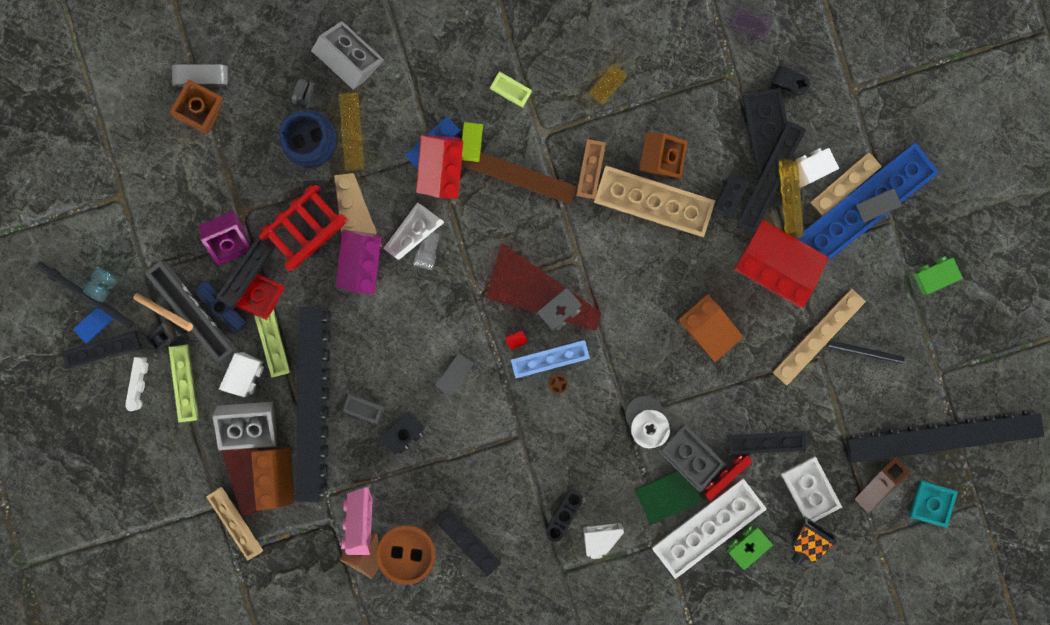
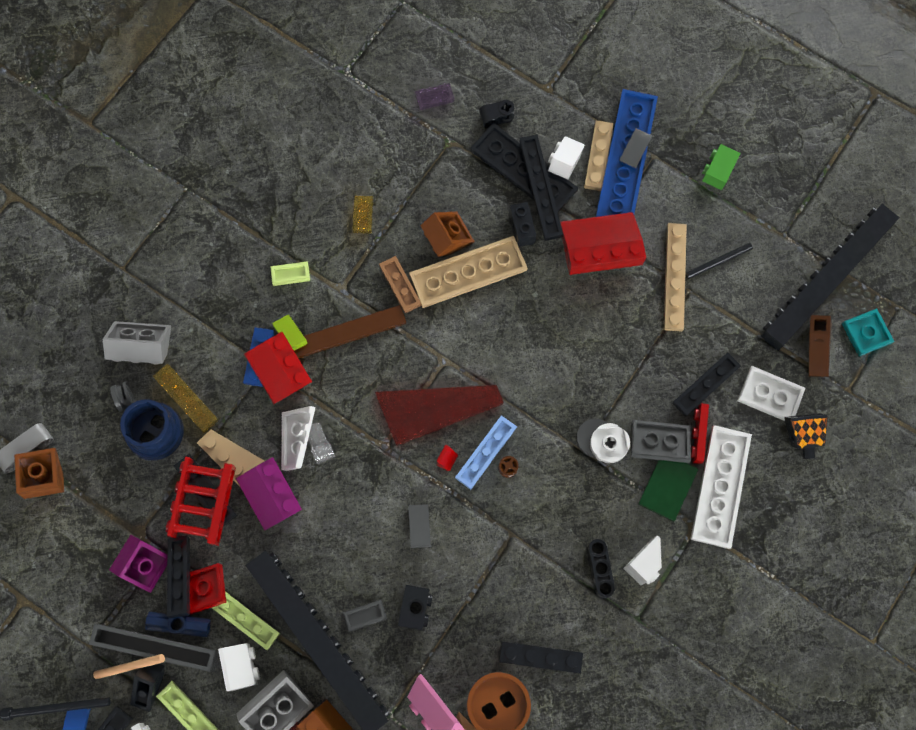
camera: 40 degrees left, 15 degrees down
(95, 289) = (58, 695): clear light blue wheel -> none
(565, 299) = (456, 414): dark grey brick -> none
(710, 327) = (589, 331): dark orange slope -> none
(746, 556) = (770, 466): bright green brick -> none
(791, 198) = (568, 188): clear yellow plate -> none

